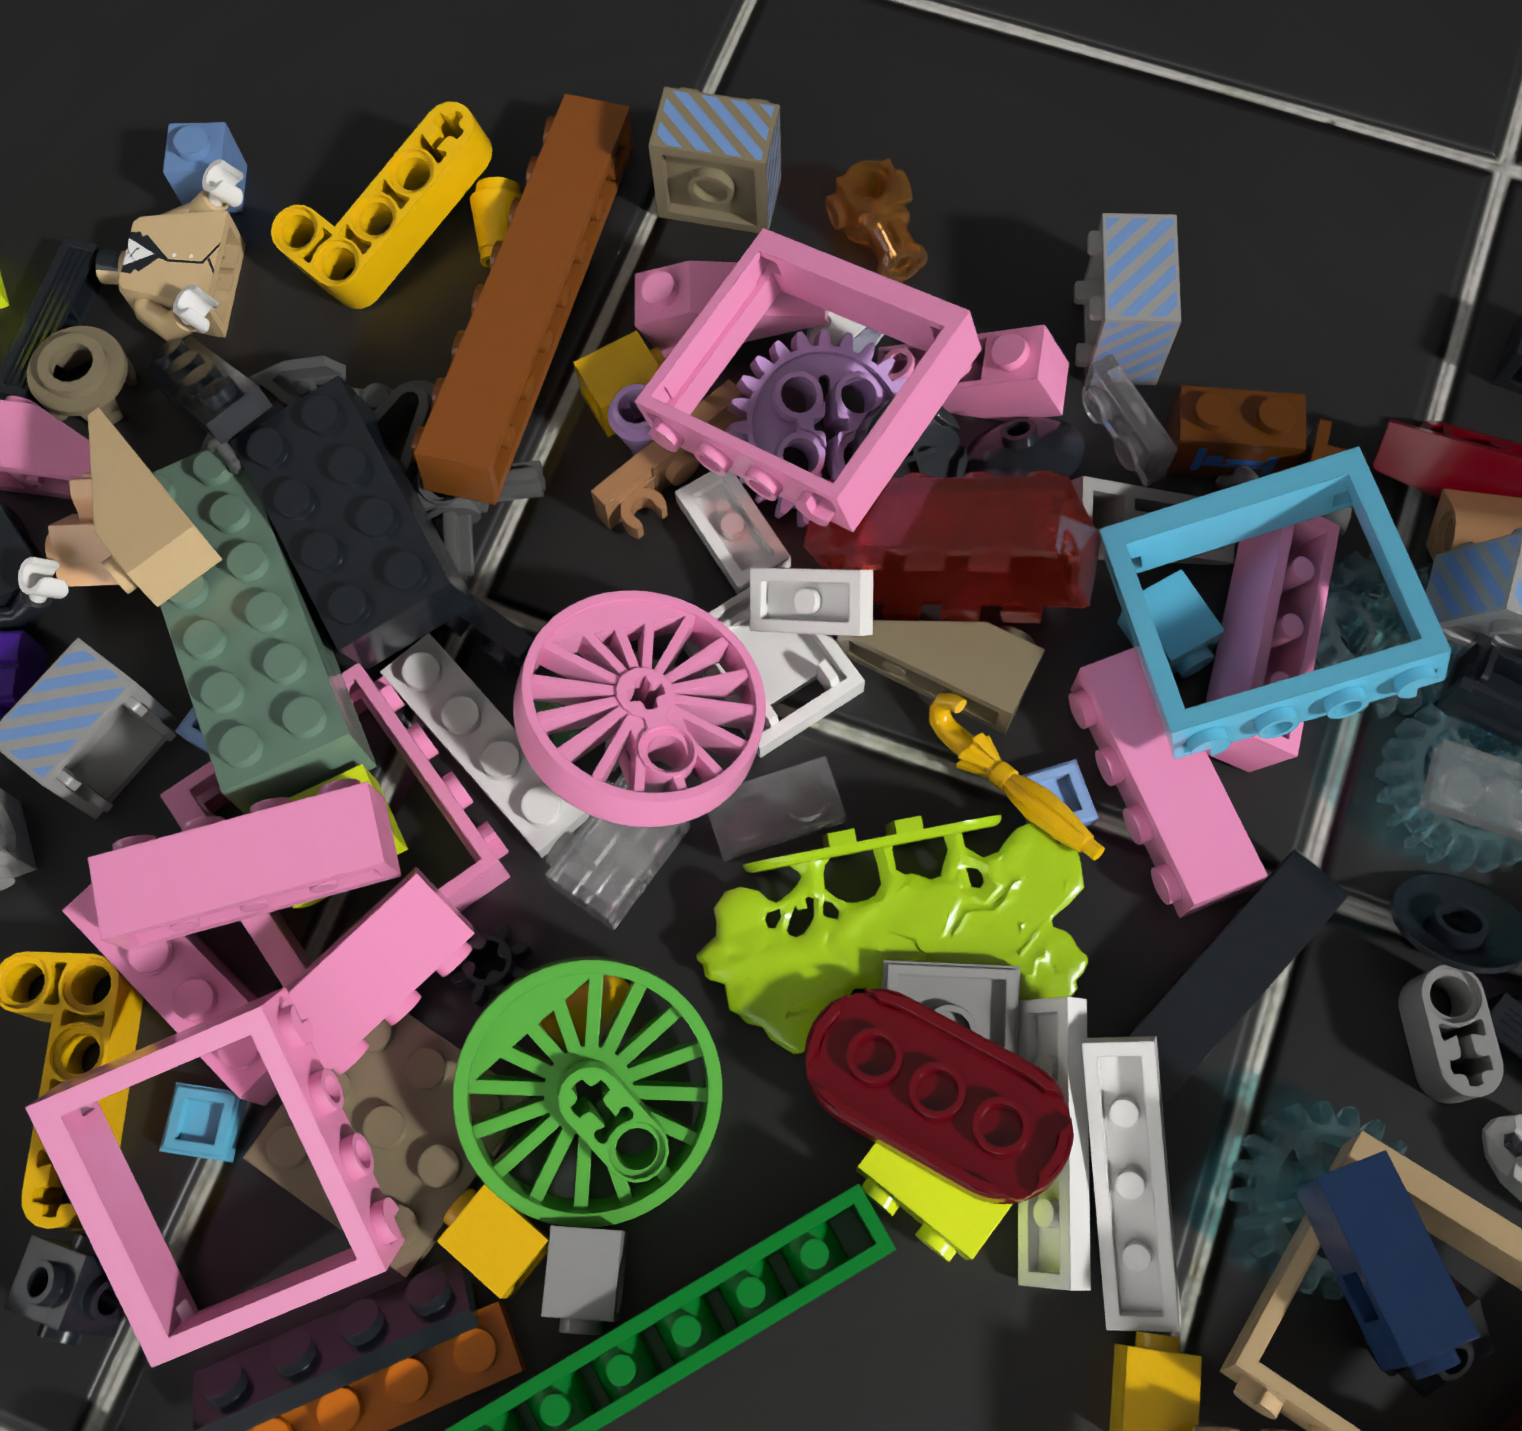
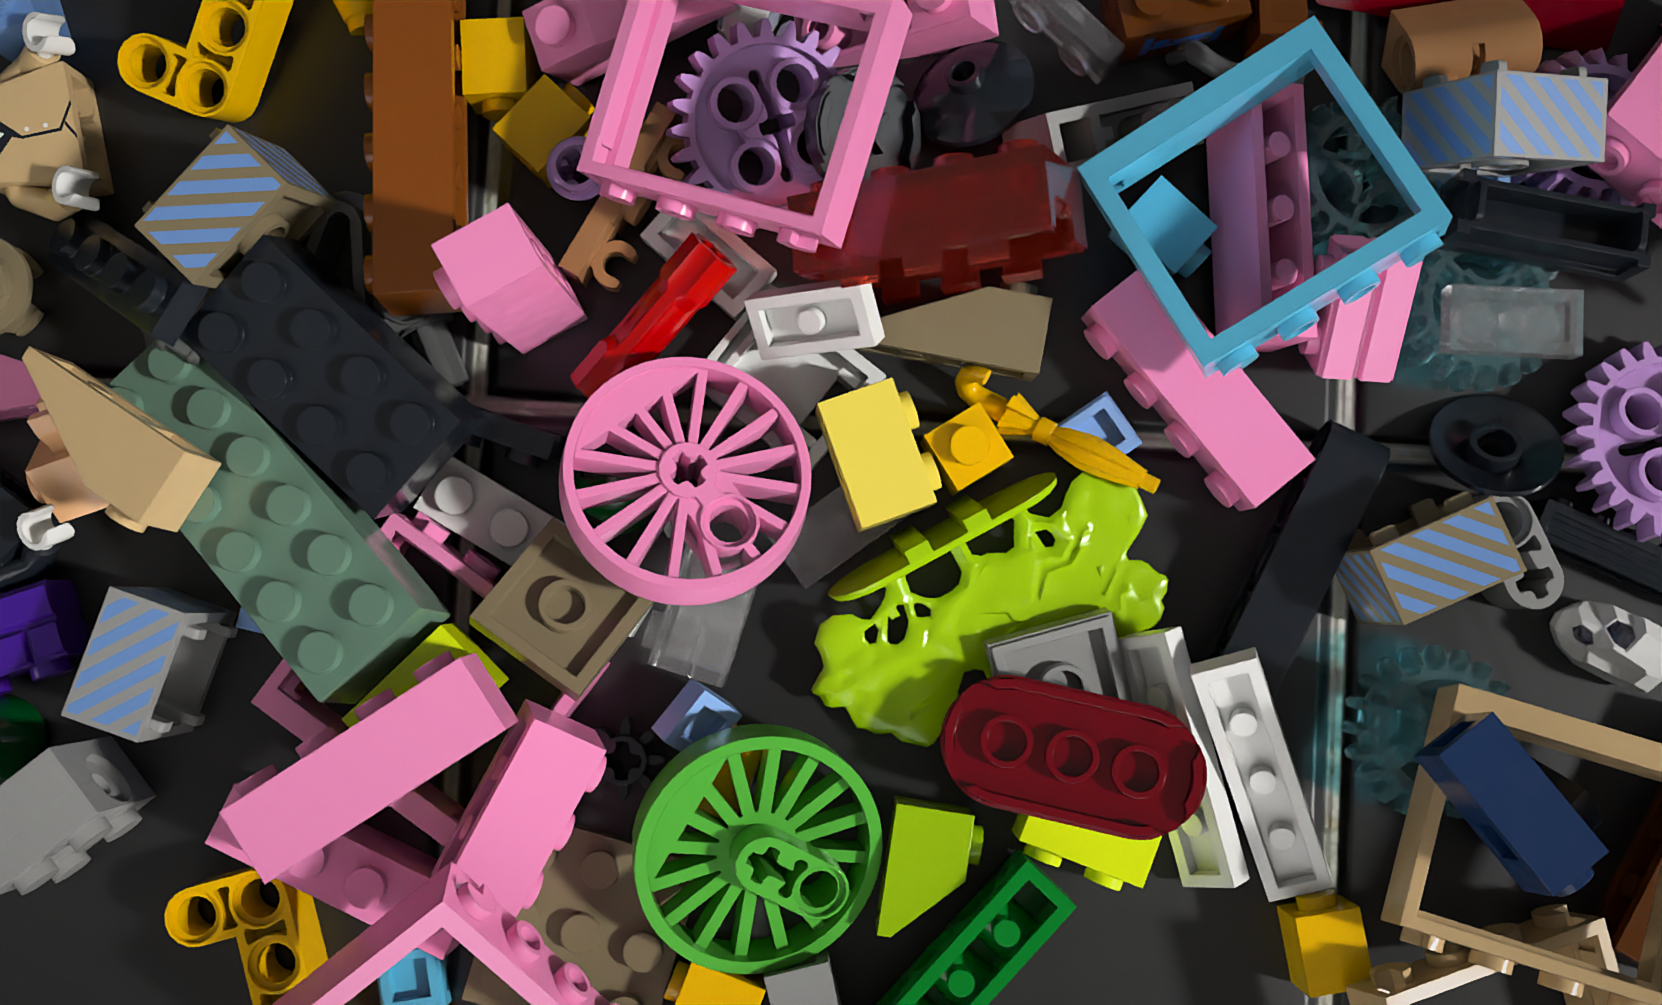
camera: 20 degrees left, 15 degrees up
(318, 337) = (228, 202): none -> dark tan container
(480, 795) = (558, 612): none -> dark tan plate
(537, 476) = (506, 281): none -> bright pink brick
(570, 937) = (694, 715): none -> light blue plate
(596, 313) = (496, 64): none -> yellow brick
(697, 543) = (683, 287): none -> red axle
(755, 1160) = (924, 859): none -> lime slope
(832, 742) = (877, 454): none -> light yellow brick
(920, 769) = (966, 448): none -> yellow brick
(1349, 759) = (1366, 335): none -> bright pink brick
(1359, 1007) = (1428, 560): none -> dark tan container

